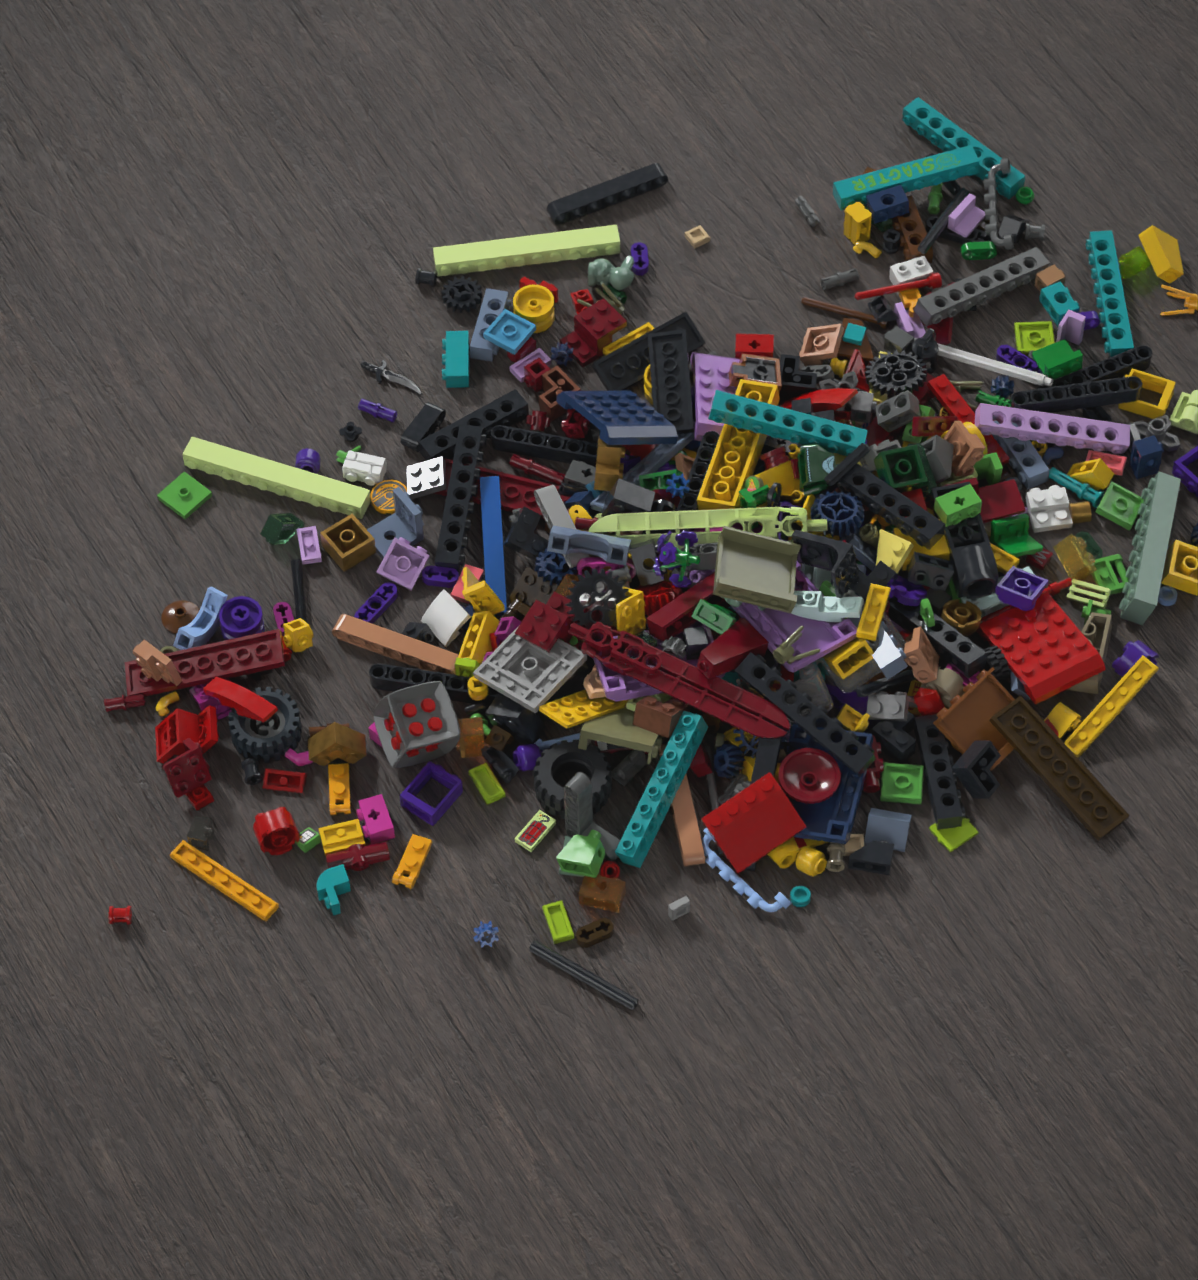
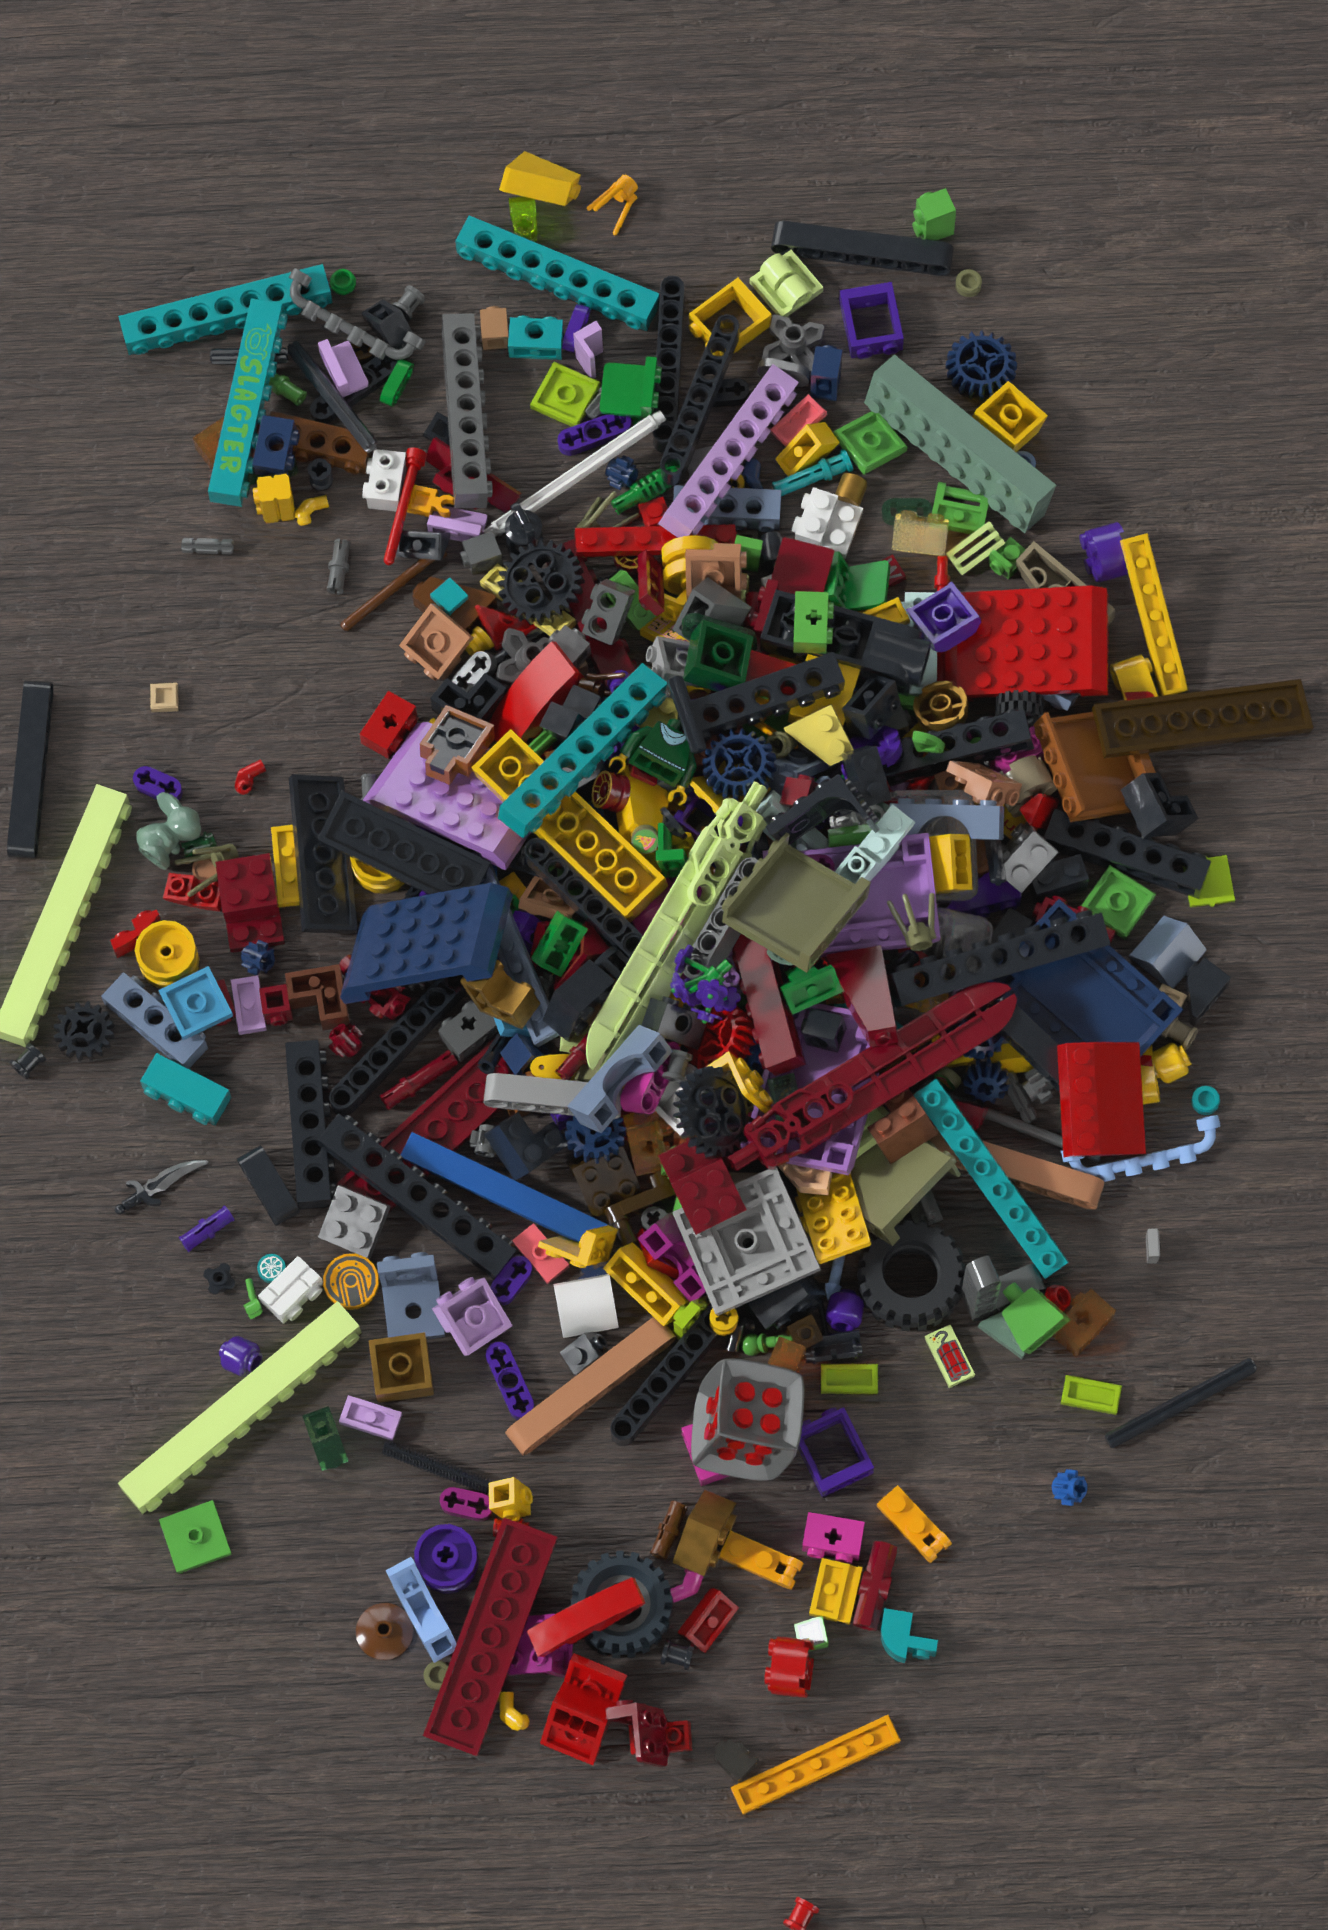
camera: 60 degrees left, 15 degrees up
(124, 702) = (482, 1764): dark red axle -> none
(156, 664) = (463, 1700): nougat plate -> none
(374, 450) = (270, 1267): none -> teal tile
(594, 932) = (1136, 1360): dark brown beam -> none
(674, 297) = (246, 776): none -> red arm
(674, 647) = (822, 1058): dark grey gear -> none
(677, 480) = (595, 920): blue gear -> none
(810, 766) = (1078, 984): dark red dish -> none
(852, 719) = (1018, 909): yellow bracket -> none
(873, 612) = (915, 803): yellow tile -> none

